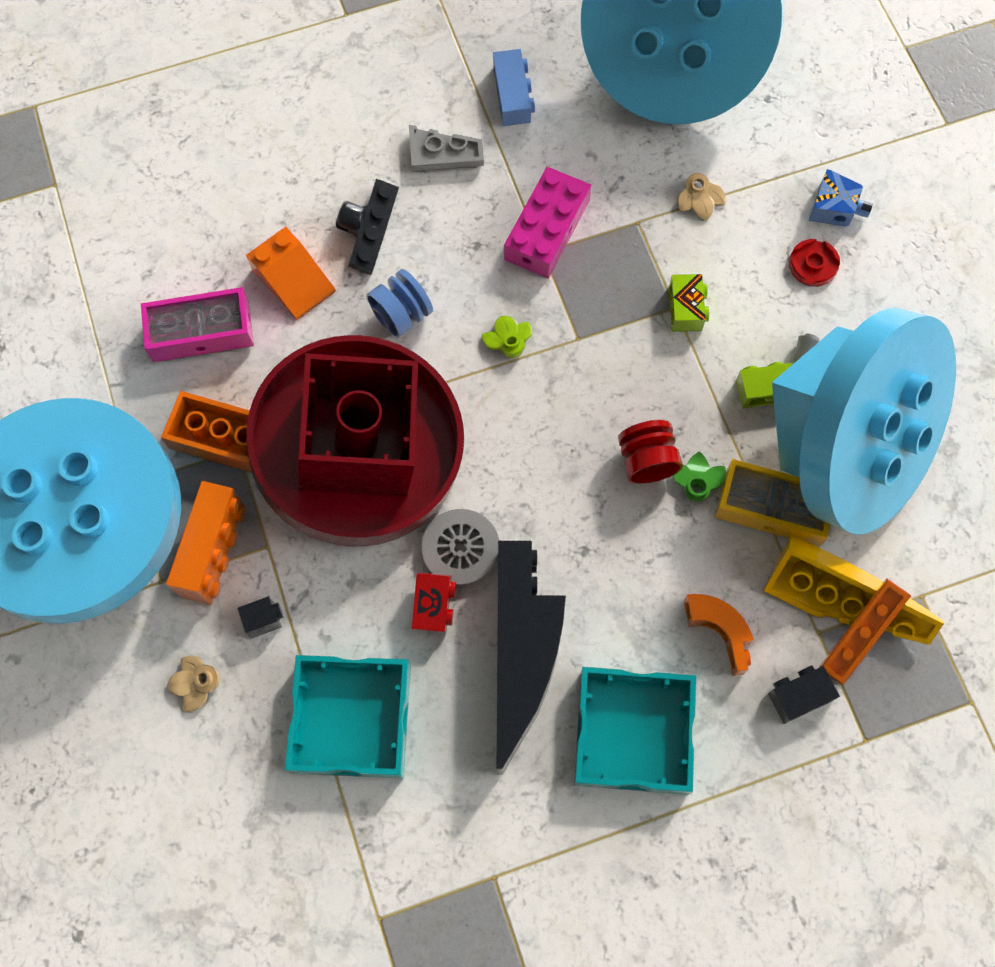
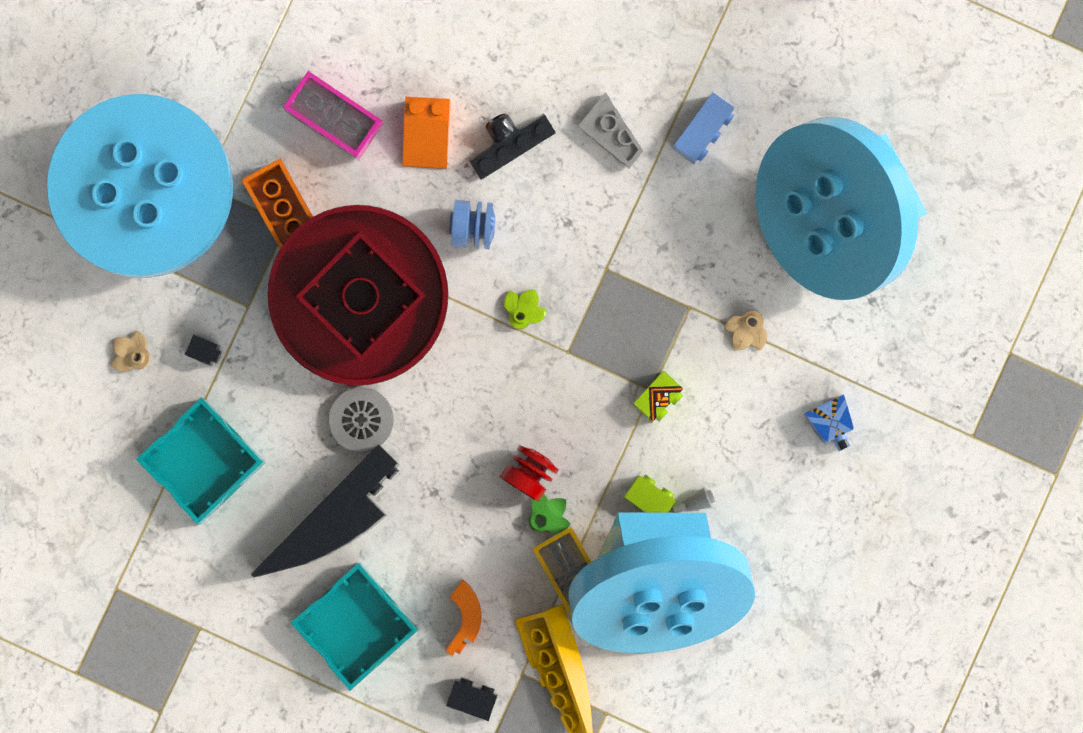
camera: 40 degrees right, 15 degrees up
(206, 543) = (210, 275): orange brick -> none
(432, 602) = (310, 439): red brick -> none
(547, 222) = (625, 254): dark pink brick -> none
(814, 262) = (772, 447): red tile -> none
(865, 631) = (542, 700): orange tile -> none

